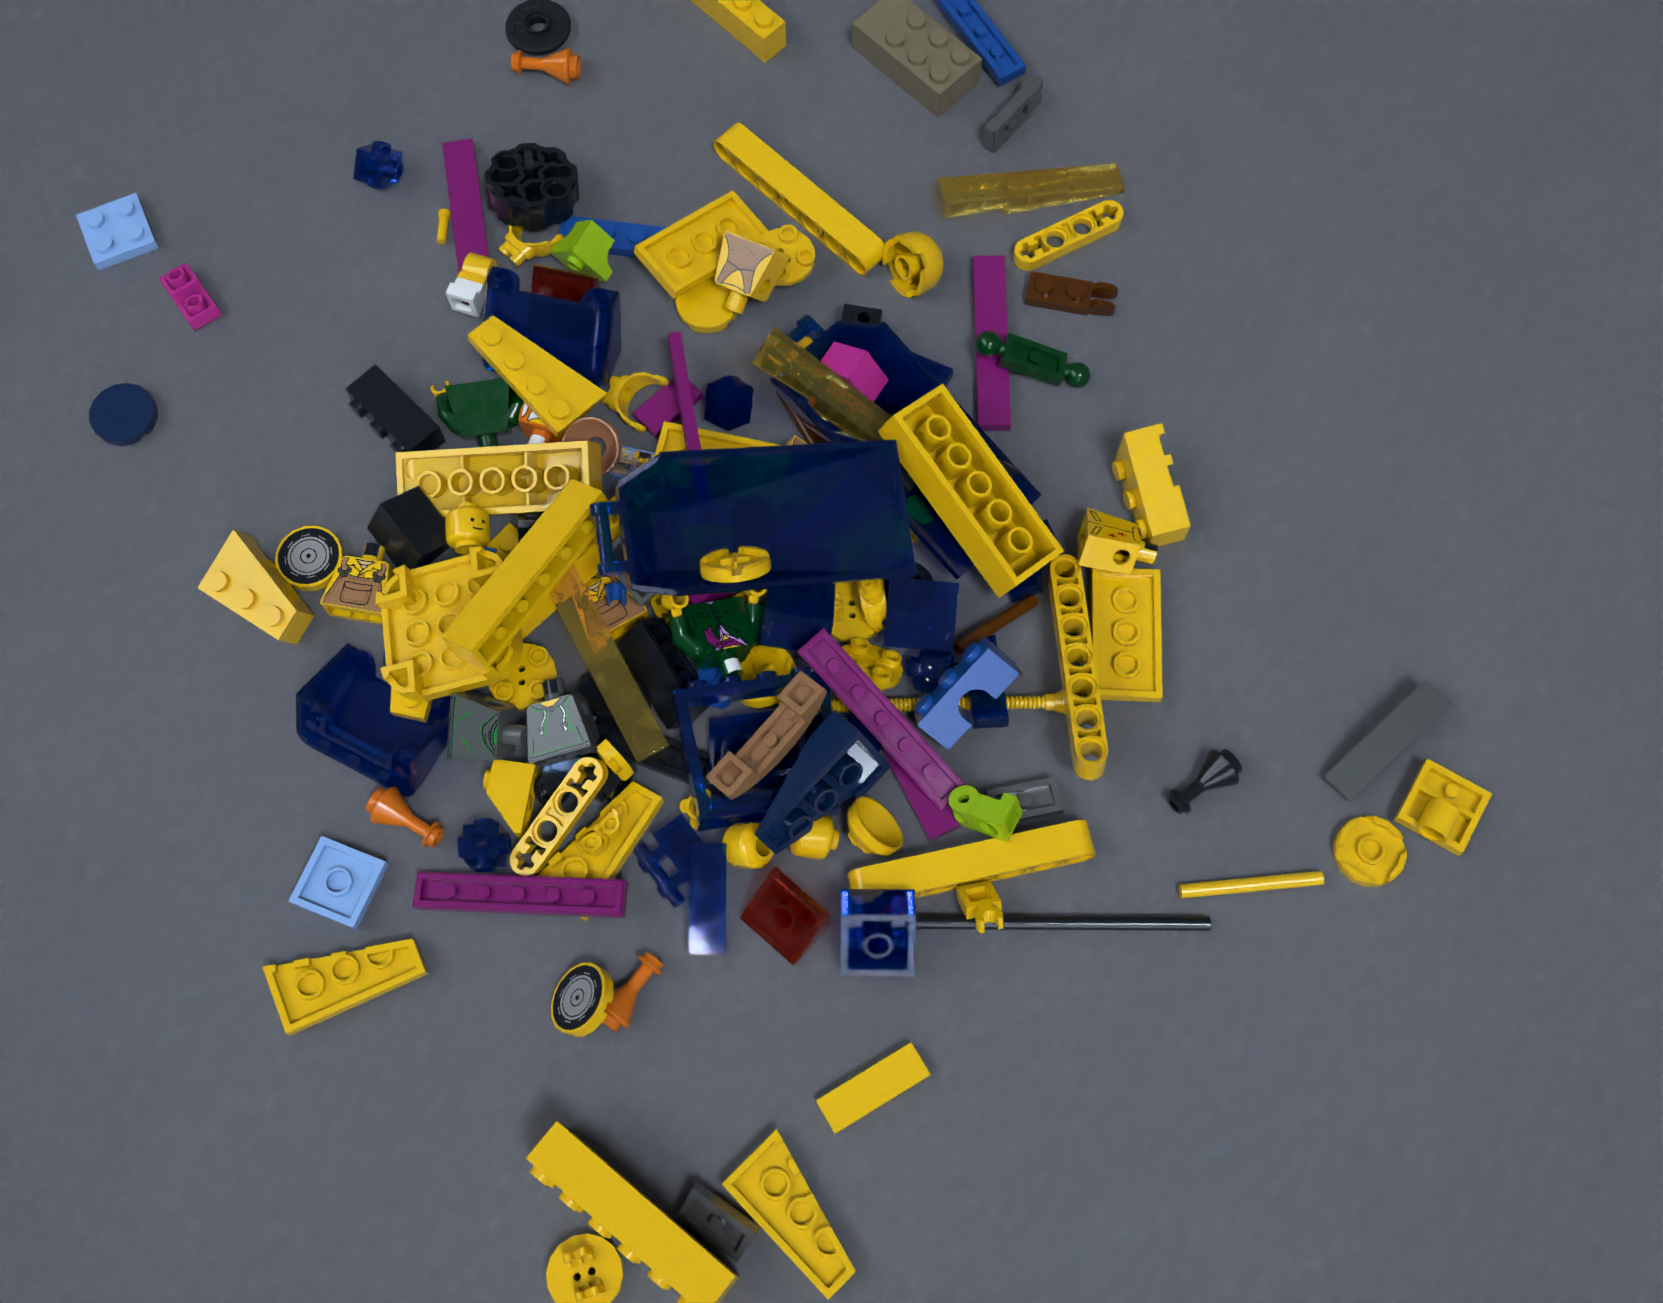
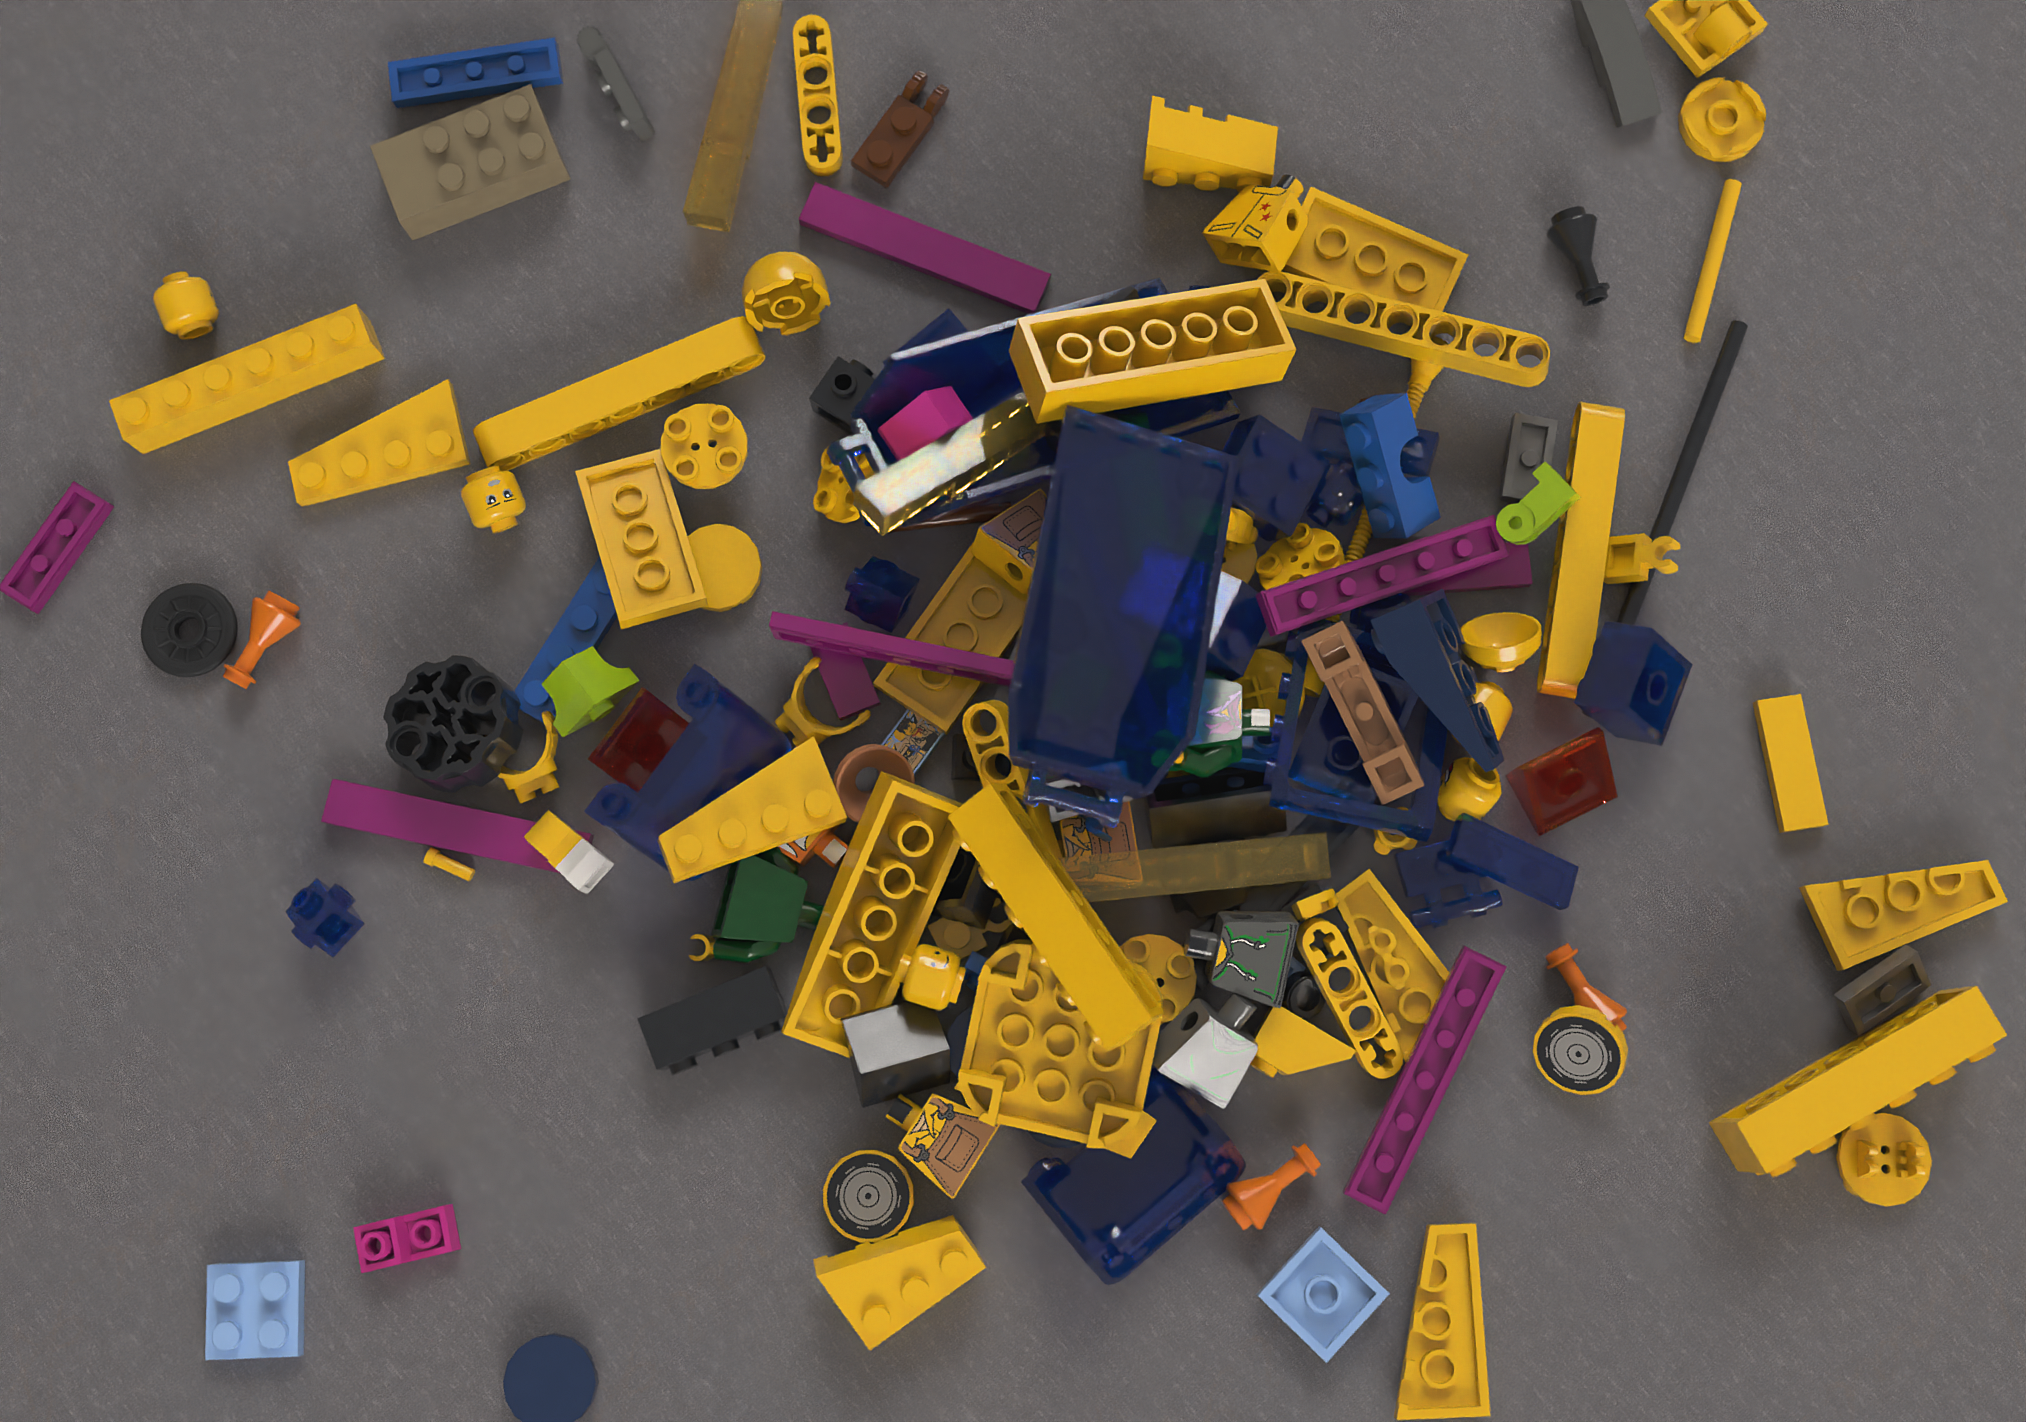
camera: 65 degrees left, 10 degrees up
(492, 853) = (1331, 1094): clear blue brick -> none
(693, 152) = (493, 499): none -> yellow head
(704, 86) = (393, 447): none -> yellow wing
(735, 567) = (1160, 659): yellow tile -> none
(747, 270) = (713, 495): torso -> none
(996, 623) = (1305, 408): reddish brown bar -> none
(1032, 359) = (976, 210): dark green plate -> none

